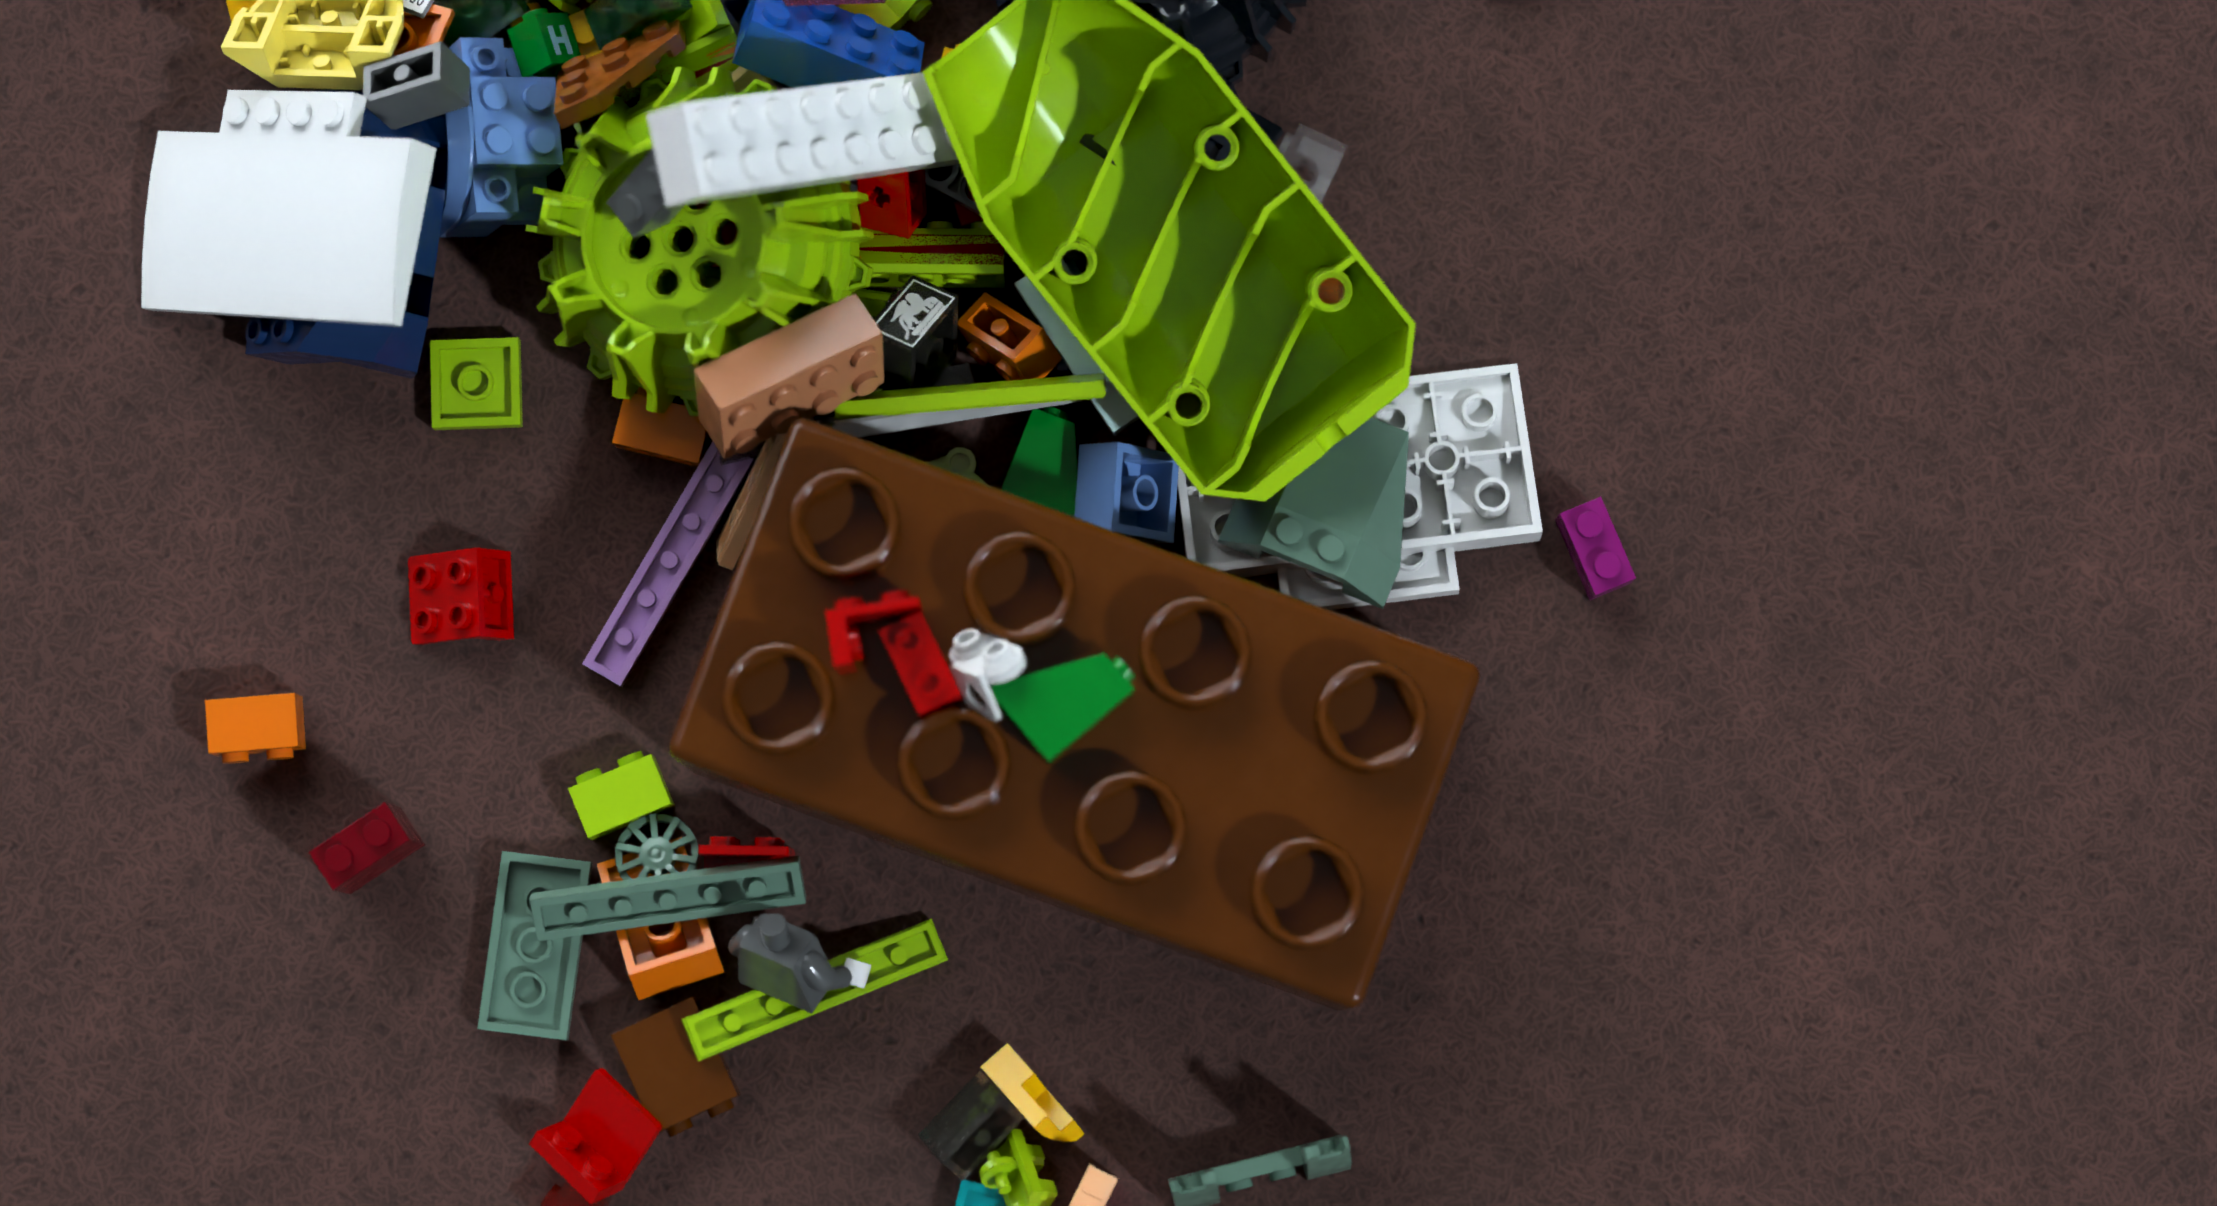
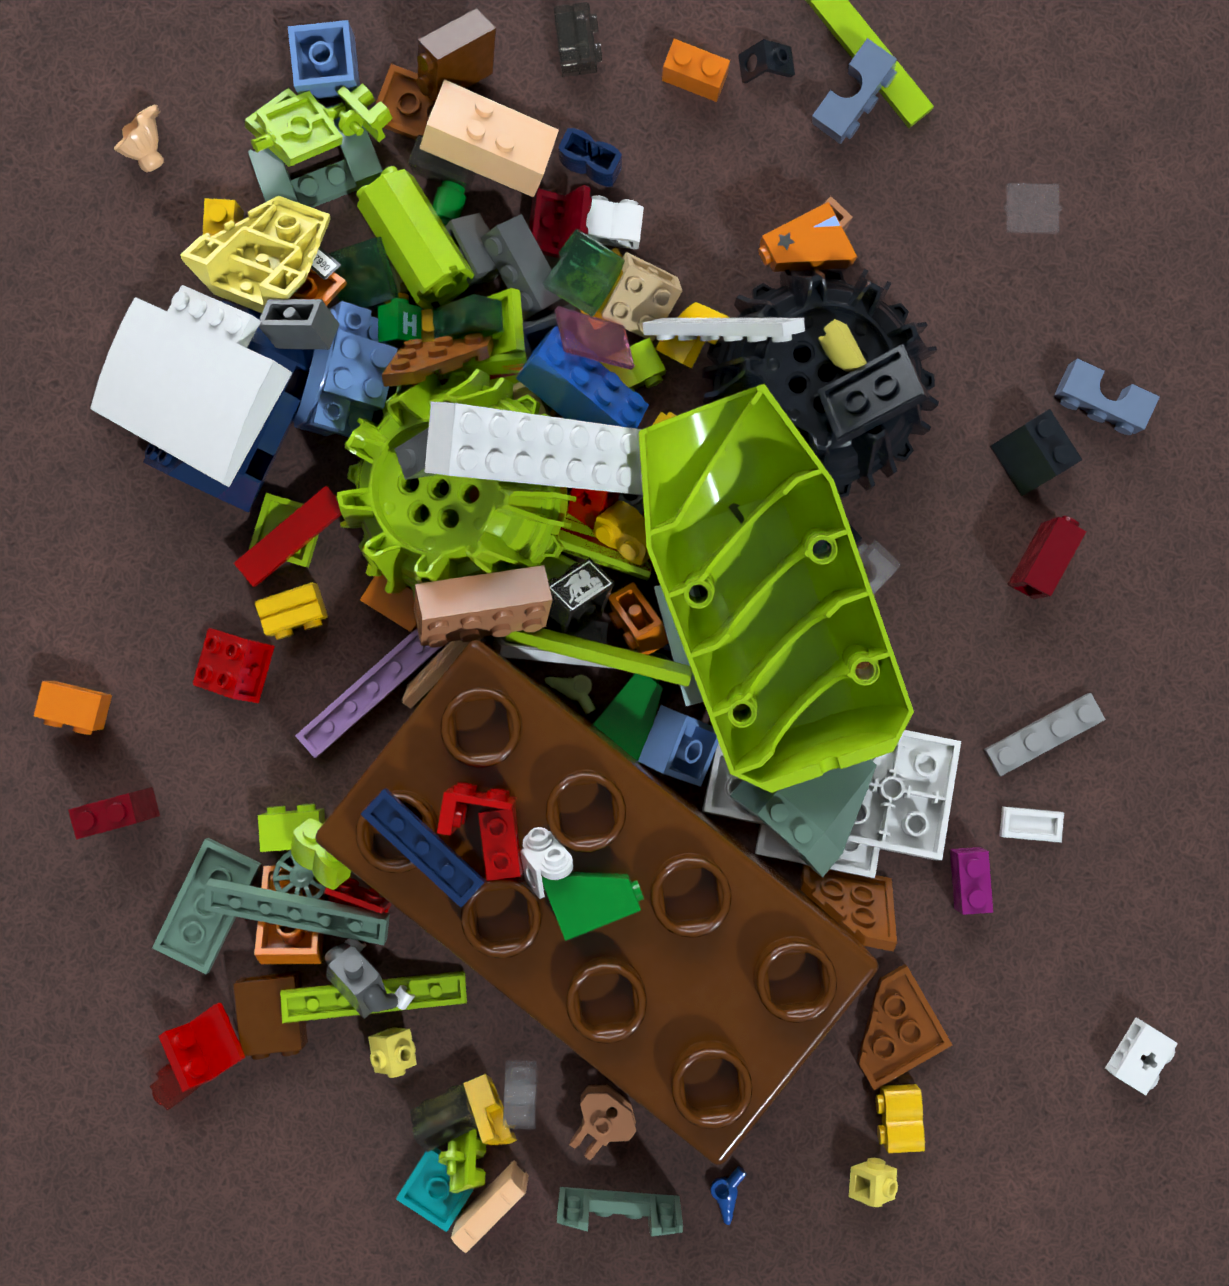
camera: 20 degrees right, 5 degrees up
(485, 387) = (289, 536): none -> red tile
(520, 492) = (291, 610): none -> yellow brick
(678, 801) = (312, 856): none -> lime brick
(821, 698) = (423, 847): none -> dark blue plate
(866, 1059) = (392, 1051): none -> light yellow brick
(948, 221) = (624, 530): none -> yellow brick
(1066, 1055) = (520, 1095): none -> clear brick
(1195, 1058) = (602, 1122): none -> nougat hinge
(1405, 1105) = (726, 1193): none -> blue animal
(1449, 623) = (856, 903): none -> dark orange plate
(1543, 69) = (1047, 557): none -> dark red brick
(1568, 791) = (899, 1029): none -> dark orange plate
(1602, 1014) = (873, 1182): none -> light yellow brick
(1612, 914) = (901, 1118): none -> yellow brick
(1630, 316) = (1044, 734): none -> light grey plate
(1655, 446) = (1031, 824): none -> white tile
(1909, 689) = (1127, 1060): none -> white brick

